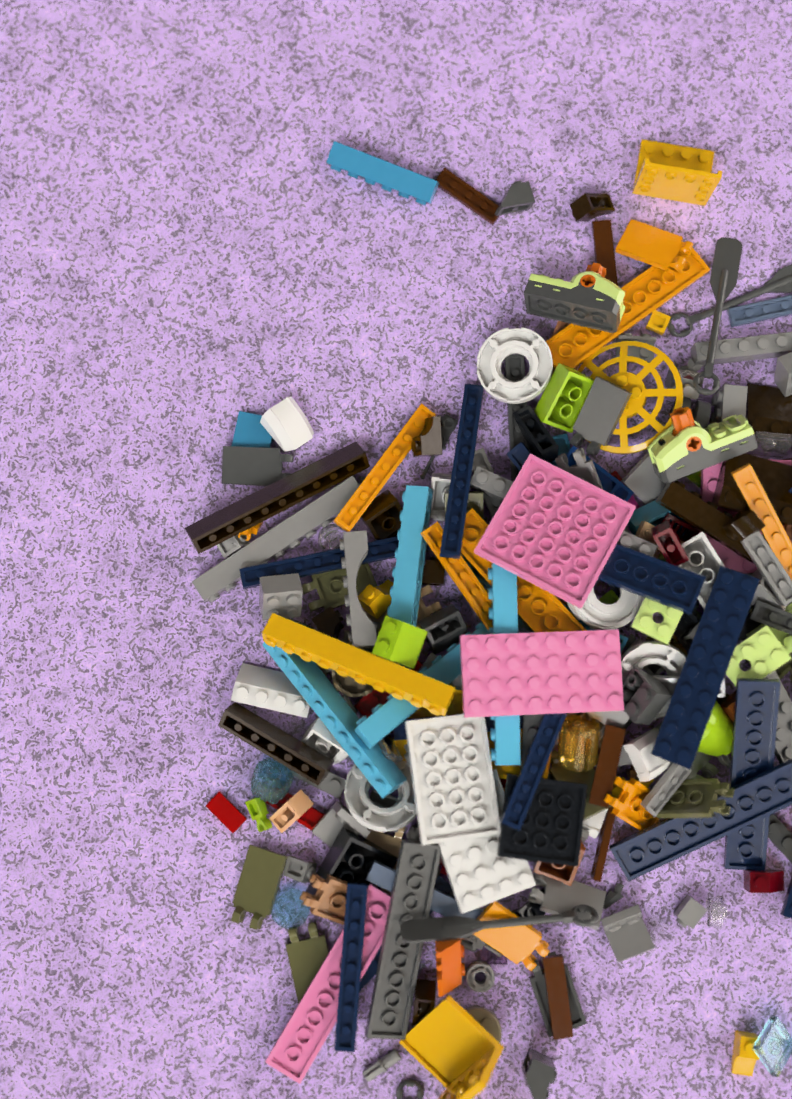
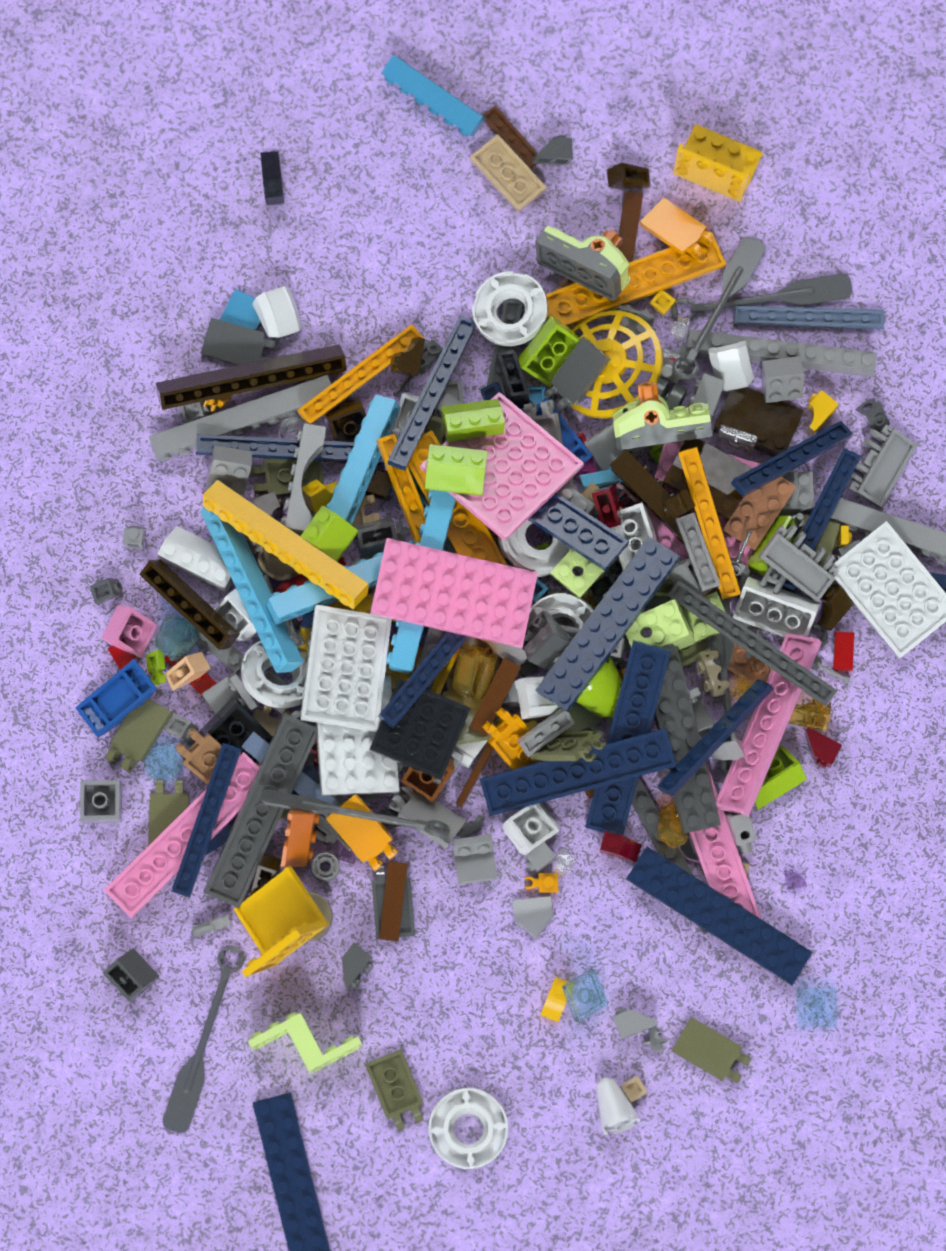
camera: 10 degrees right, 5 degrees down
(190, 746) = (106, 590): none -> dark grey bracket
(203, 686) = (134, 537): none -> light grey brick
(224, 778) = (132, 627): none -> bright pink slope
(227, 857) = (116, 698): none -> blue slope
(239, 968) = (101, 801): none -> light grey brick
(247, 292) = (272, 178): none -> black slope
(464, 613) = (401, 531): none -> light grey plant
(474, 231) = (507, 173): none -> tan plate
(513, 548) = (456, 470): none -> lime slope
(514, 489) = (473, 420): none -> lime slope
(673, 885) = (530, 828): none -> white slope
(685, 345) = (681, 329): none -> clear piece
(697, 971) = (533, 914): none -> light grey slope
(701, 935) = (546, 882): none -> light orange plate
(745, 367) = (732, 365): none -> white slope

